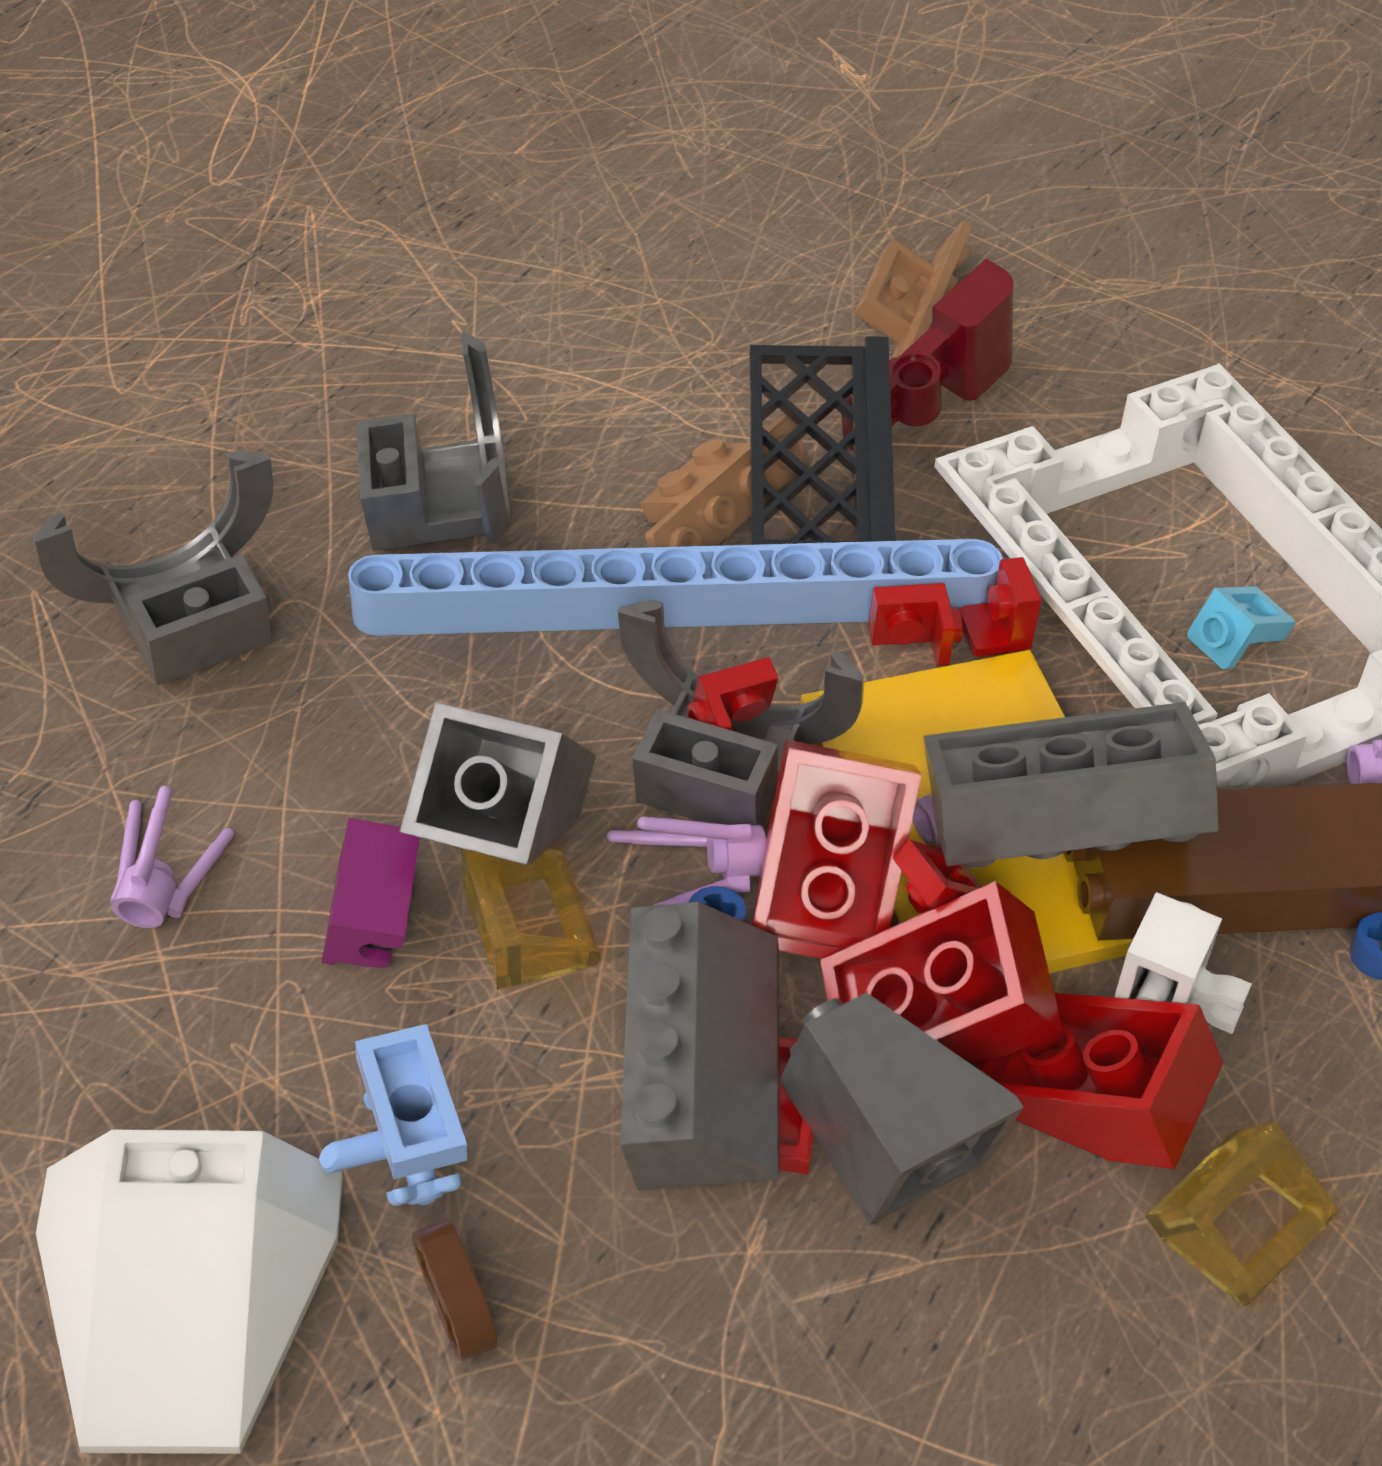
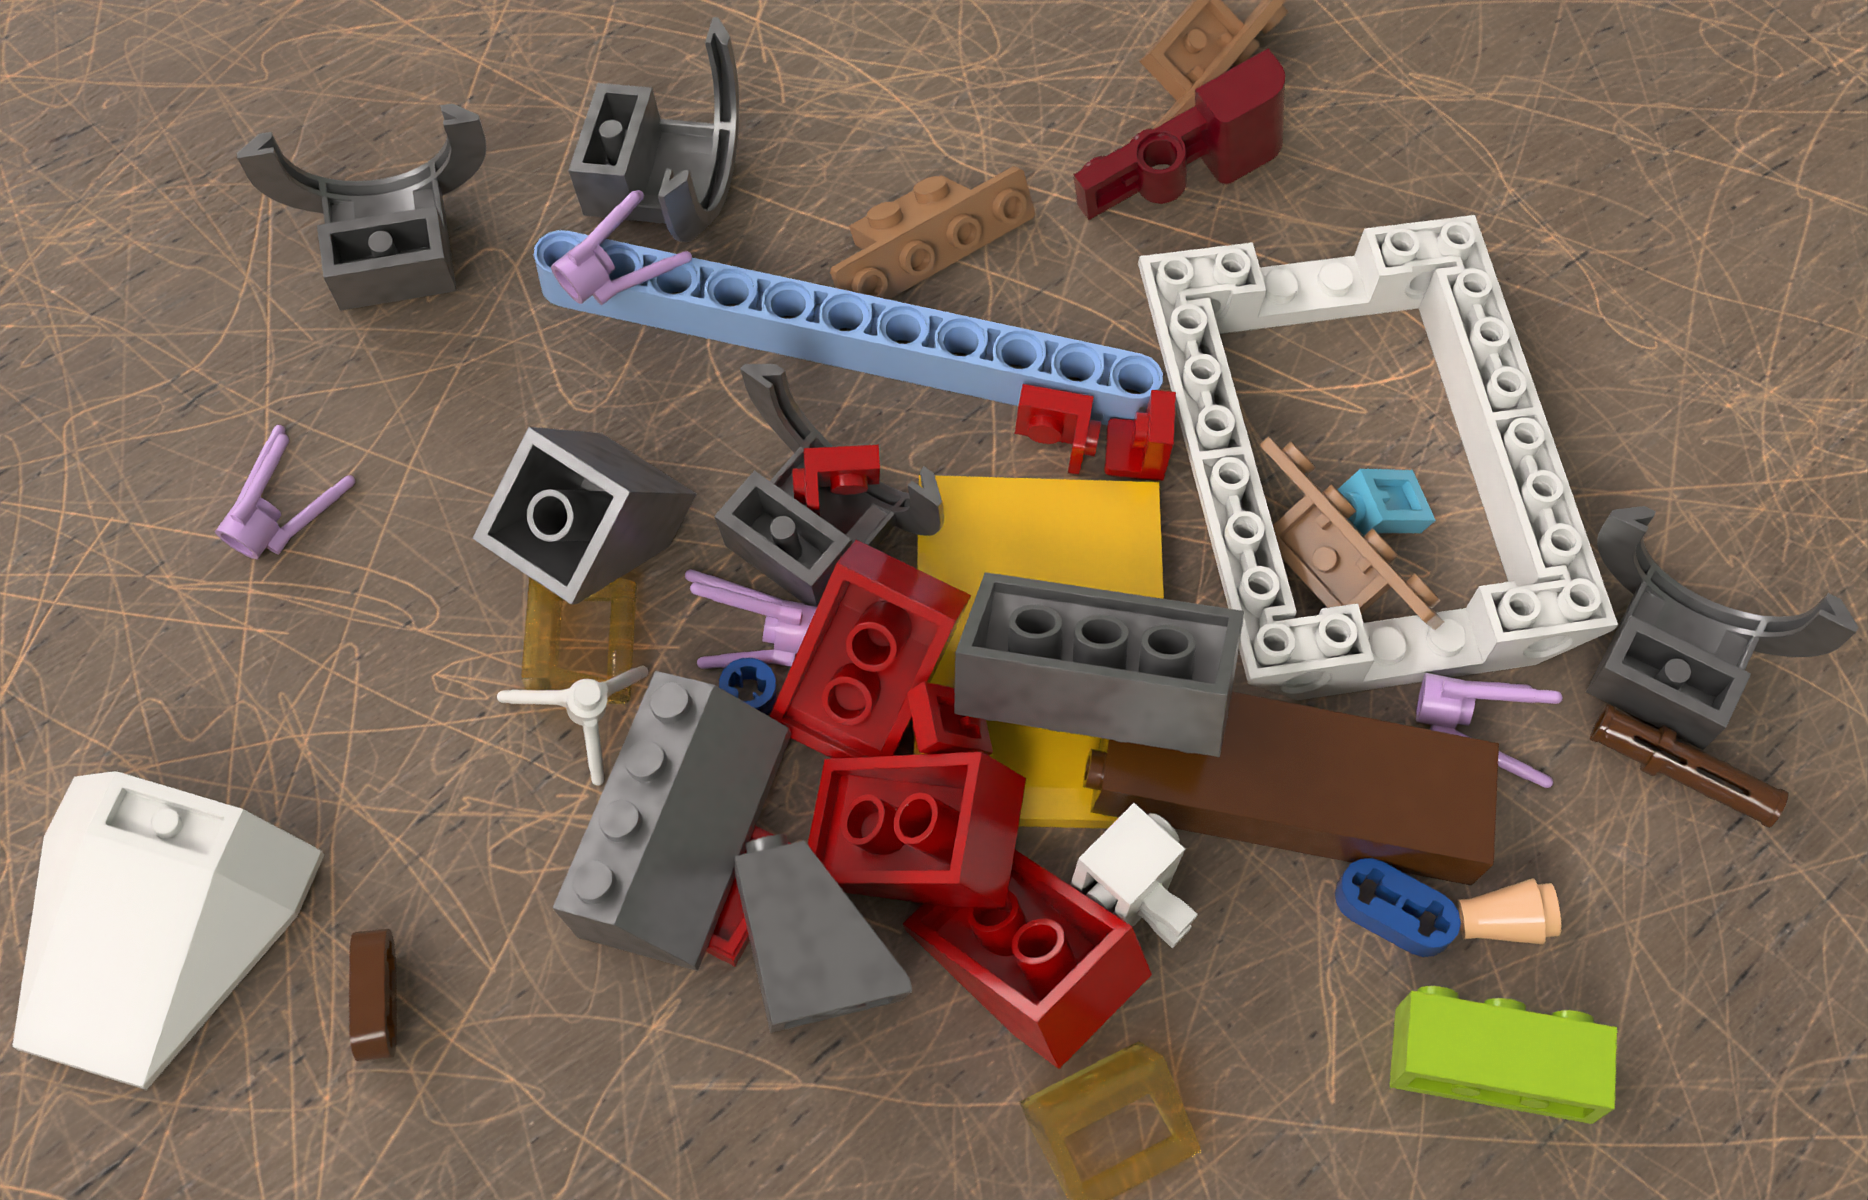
camera: 15 degrees right, 15 degrees up
(370, 894) = (439, 583): magenta hinge -> none
(412, 1117) = (370, 828): light blue piece -> none
(416, 572) = (587, 266): none -> lavender plant
(573, 954) = (585, 706): none -> white plant
(870, 440) = (1082, 217): black fence -> none
(1225, 660) = (1332, 553): none -> medium nougat bracket

